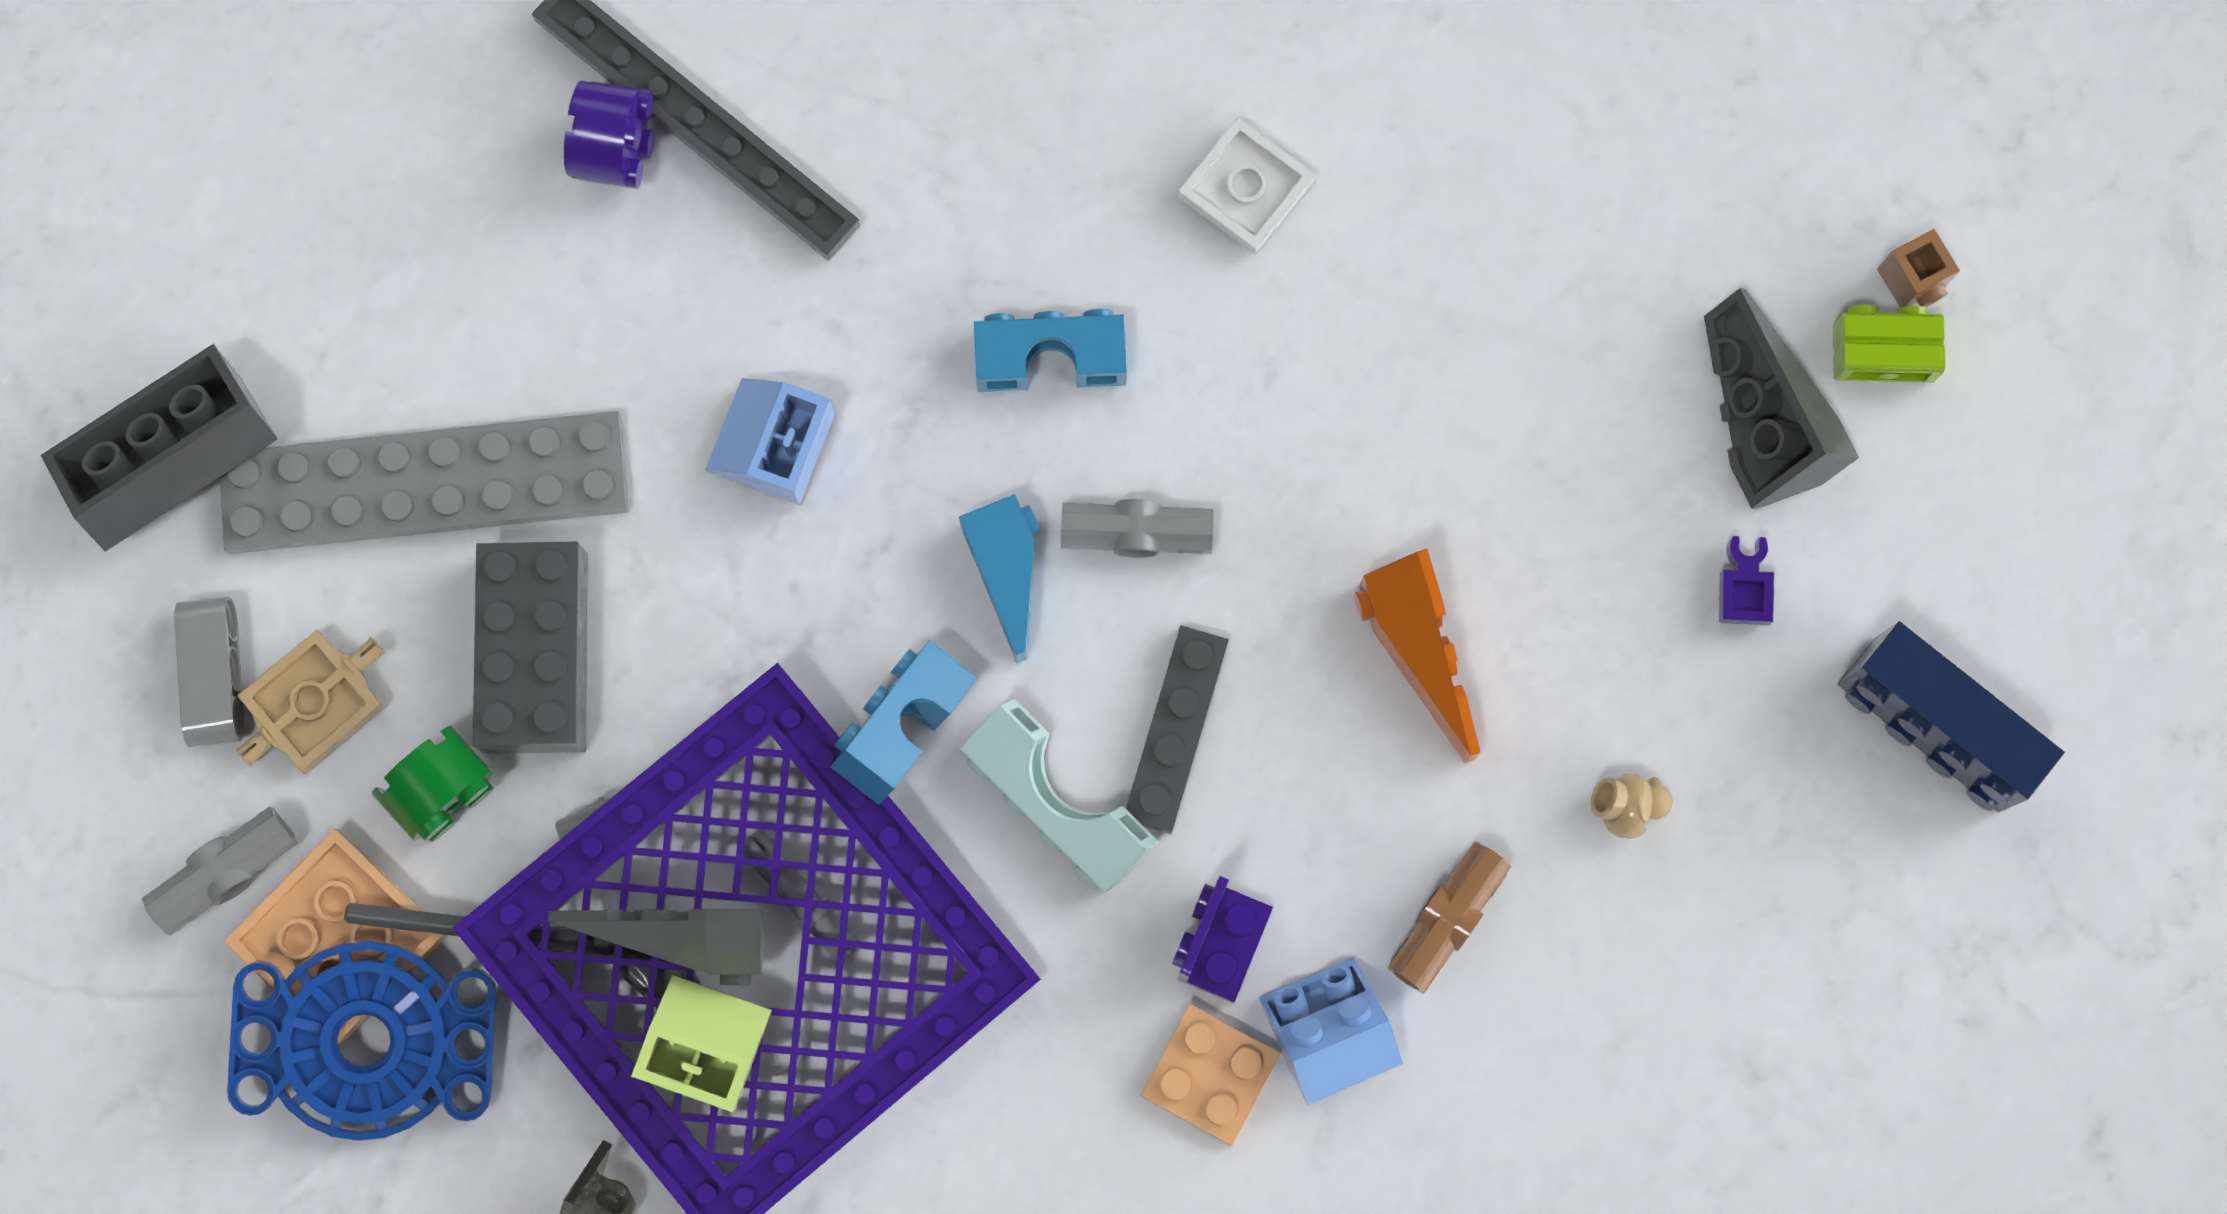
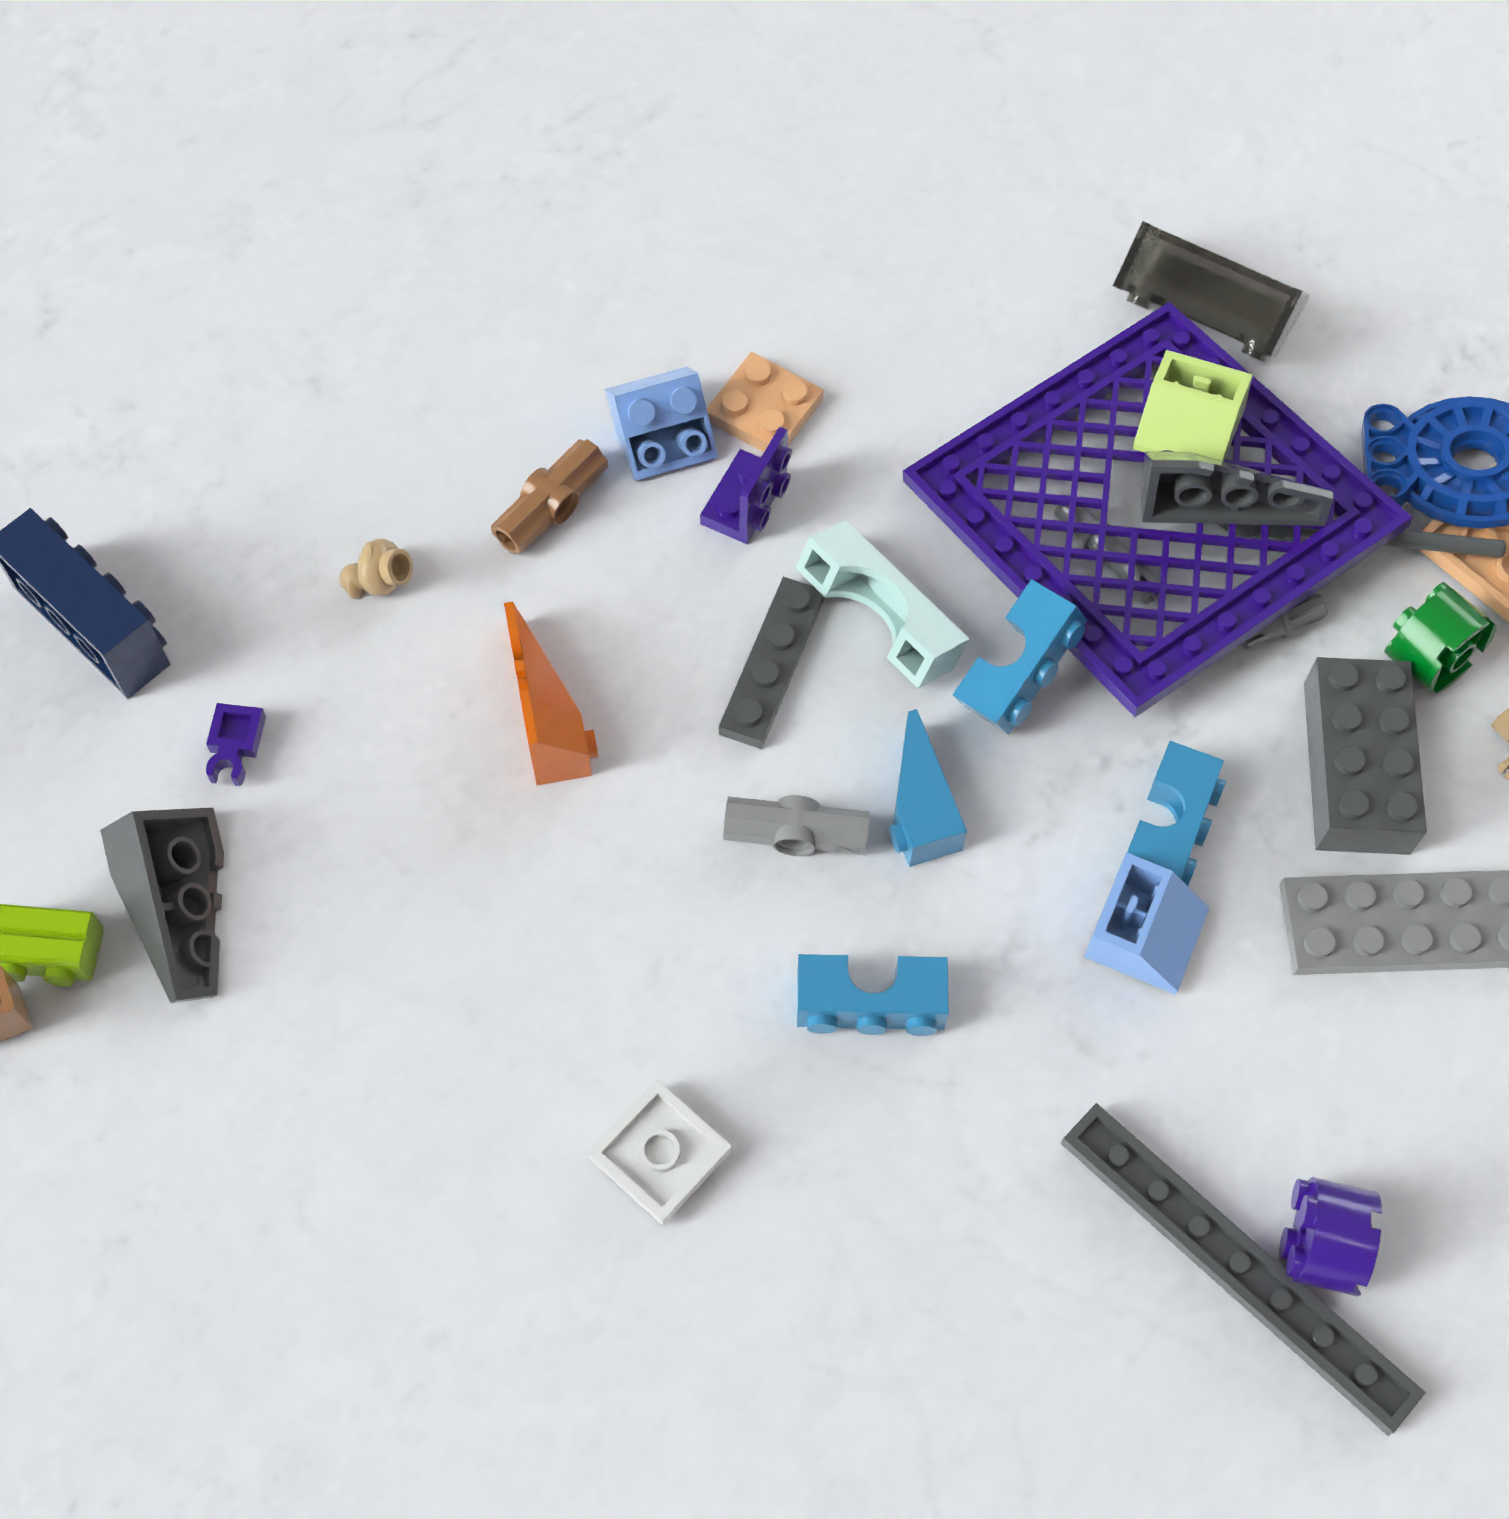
camera: 175 degrees left, 15 degrees down
(749, 519) = (1185, 786): none -> dark azure arch

